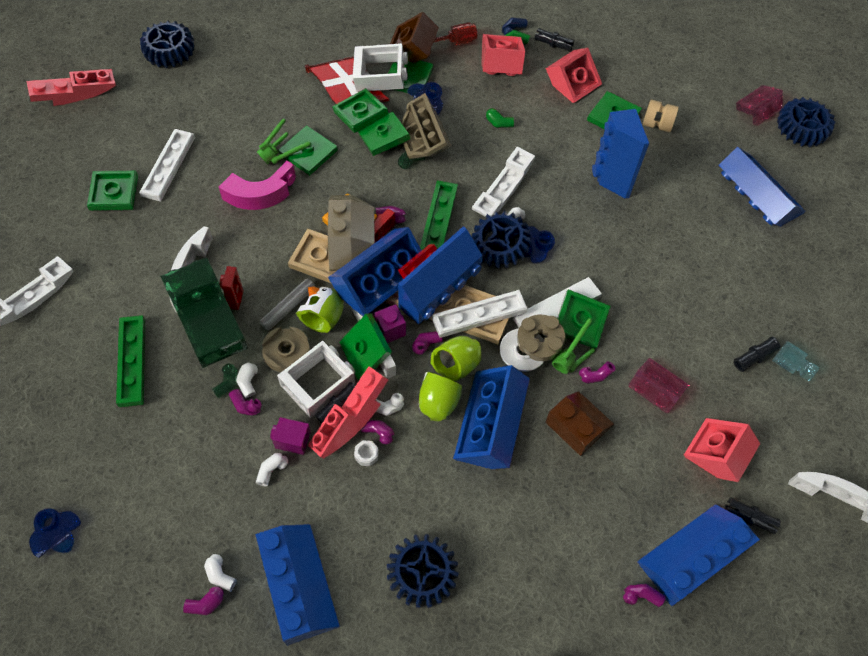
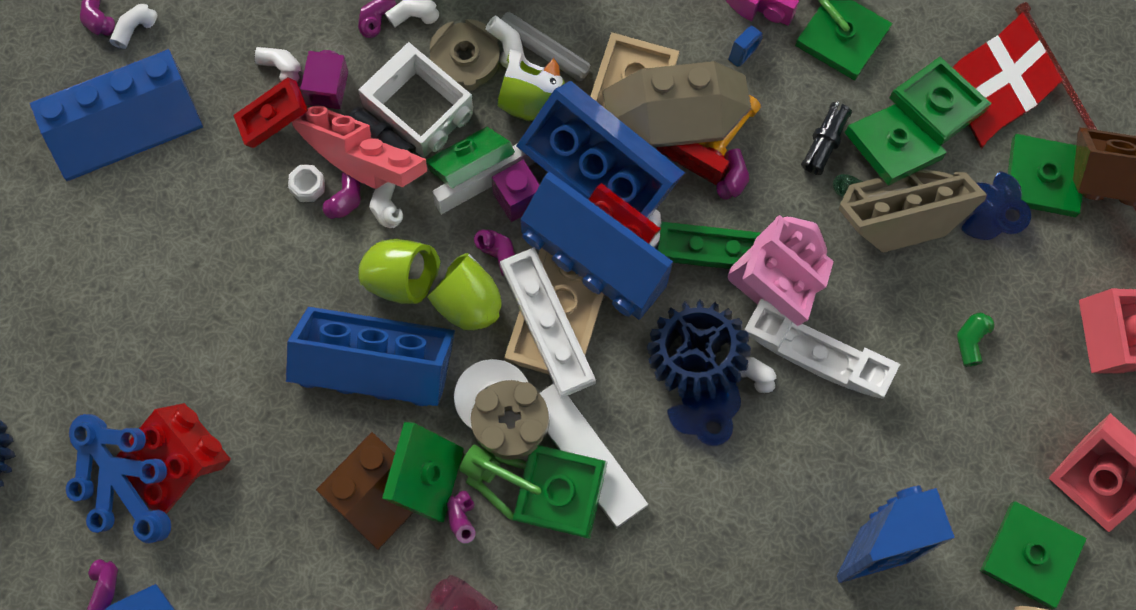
camera: 85 degrees right, 10 degrees up
(283, 319) = (507, 35): none -> white arm
(309, 196) = (745, 45): none -> blue tile
(313, 470) = (270, 112): none -> red plate
(374, 165) = (826, 138): none -> black pin
(379, 54) = (1034, 86): white window -> none
(434, 571) = (105, 267): dark blue gear -> none
(460, 188) = (785, 267): none -> bright pink piece
(557, 547) = (184, 447): none -> red bracket
(568, 582) = (113, 477): none -> blue plant
(573, 387) = (423, 472): none -> green plate

